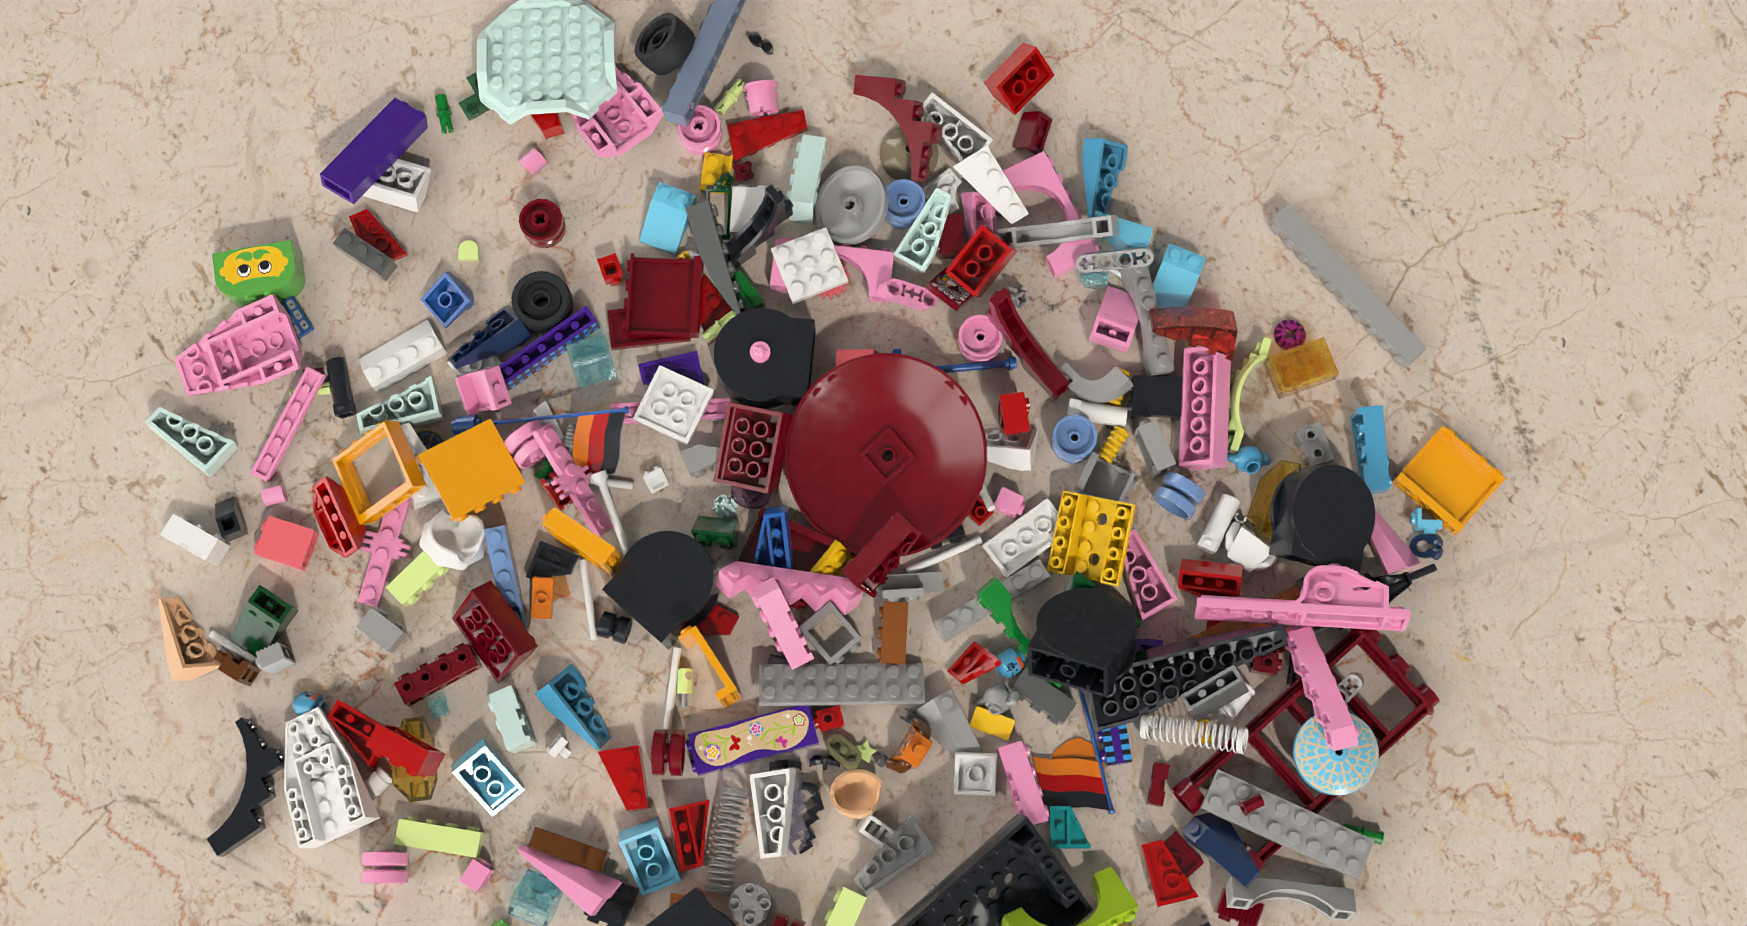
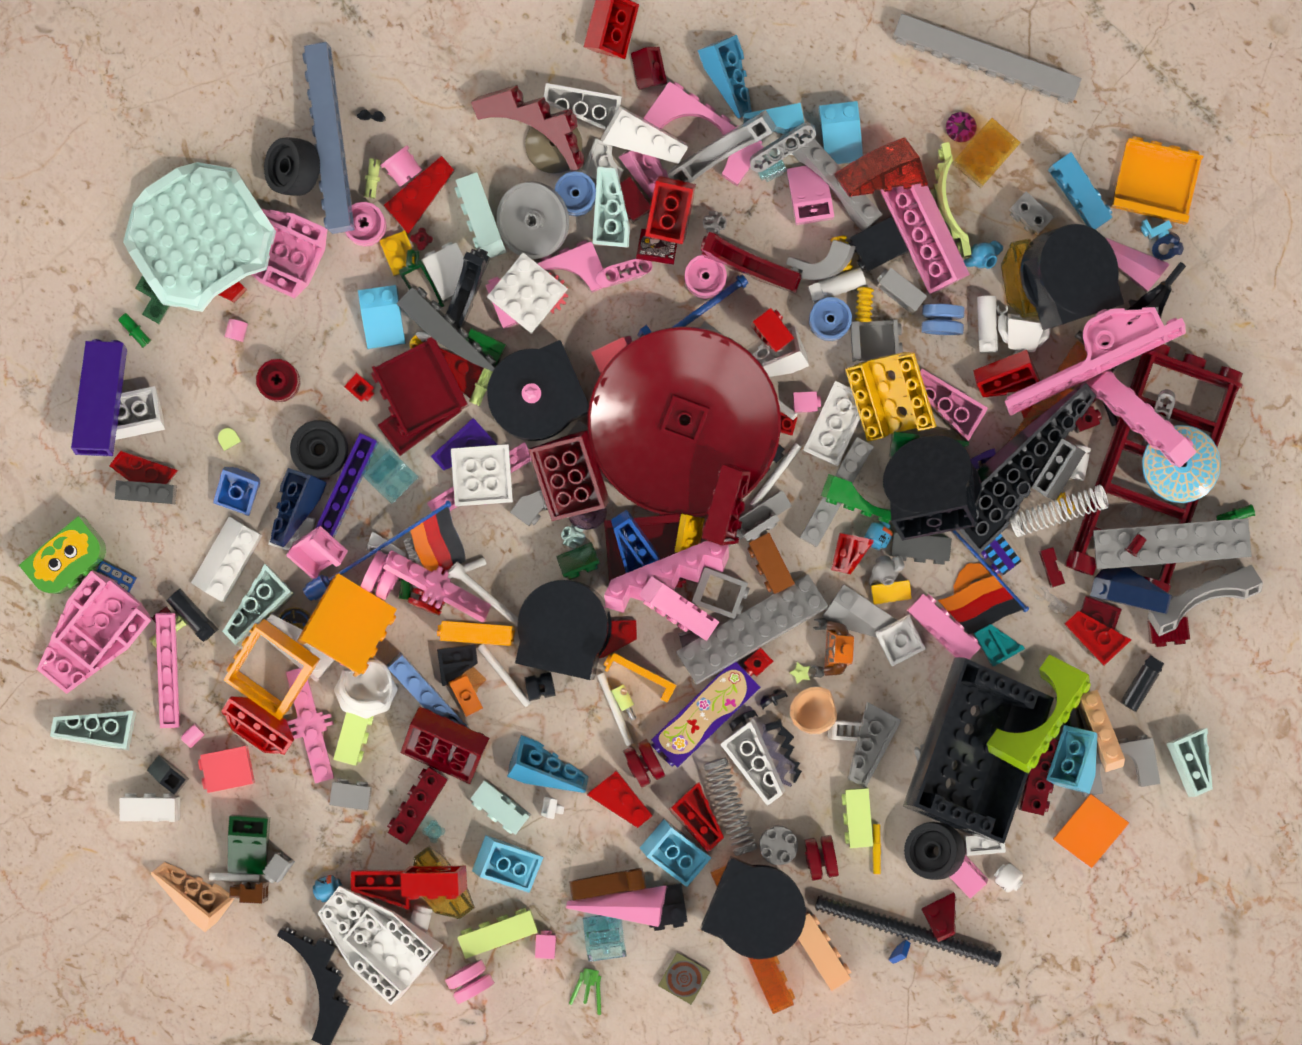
camera: 25 degrees left, 10 degrees up
(655, 480) = (502, 545): white tile -> none
(845, 751) = (785, 682): olive plate -> none

